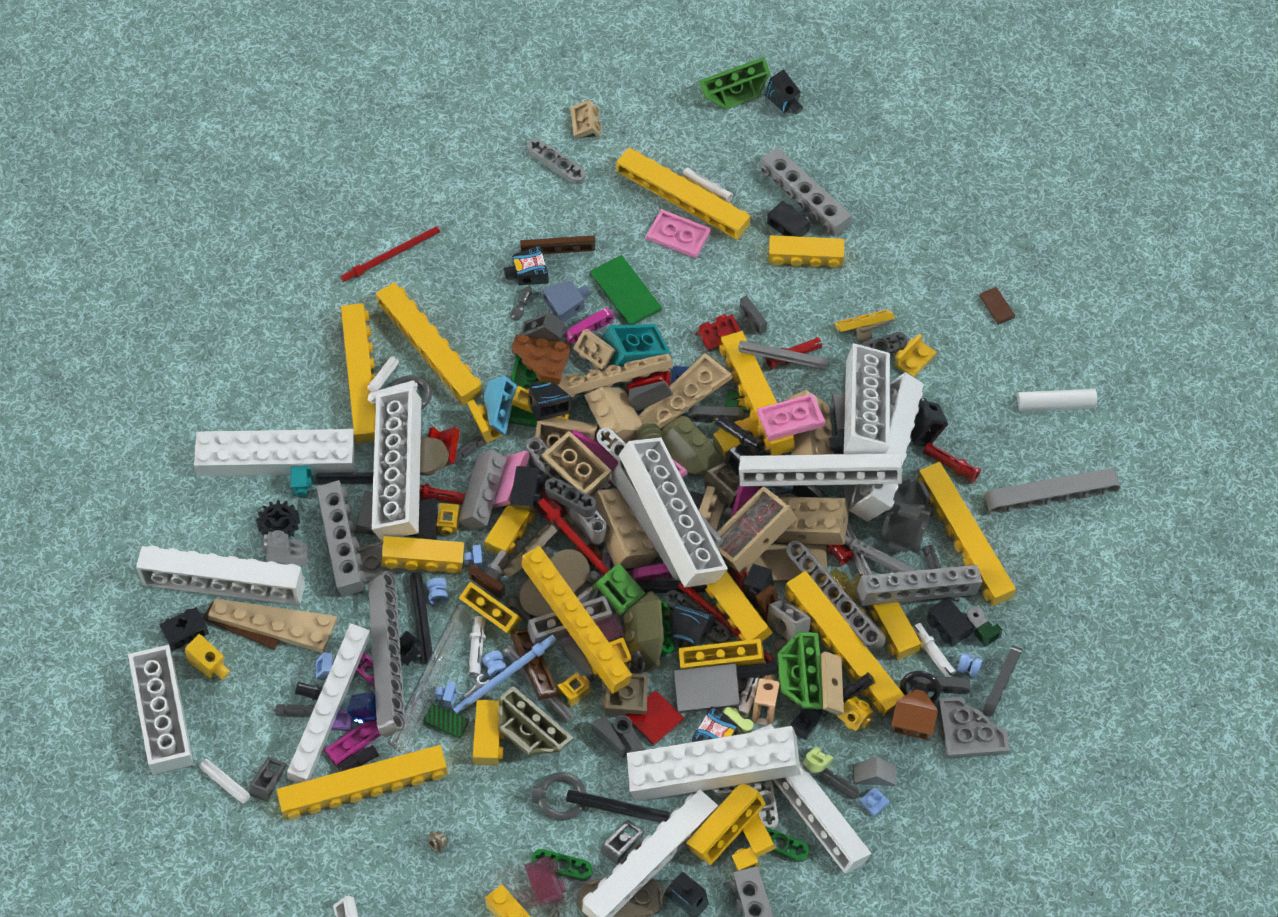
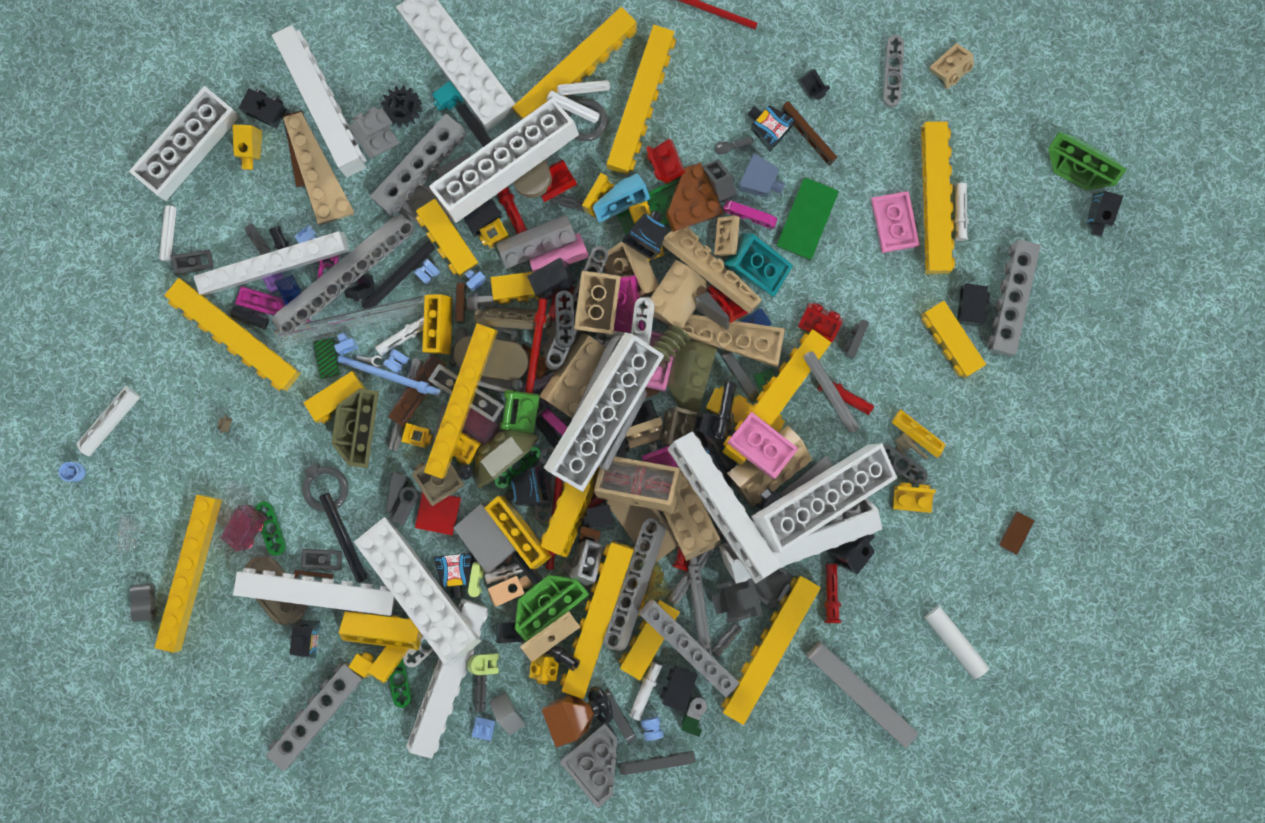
camera: 55 degrees right, 25 degrees up
(496, 355) = (665, 161): none -> red bracket
(521, 219) = (813, 85): none -> black bracket

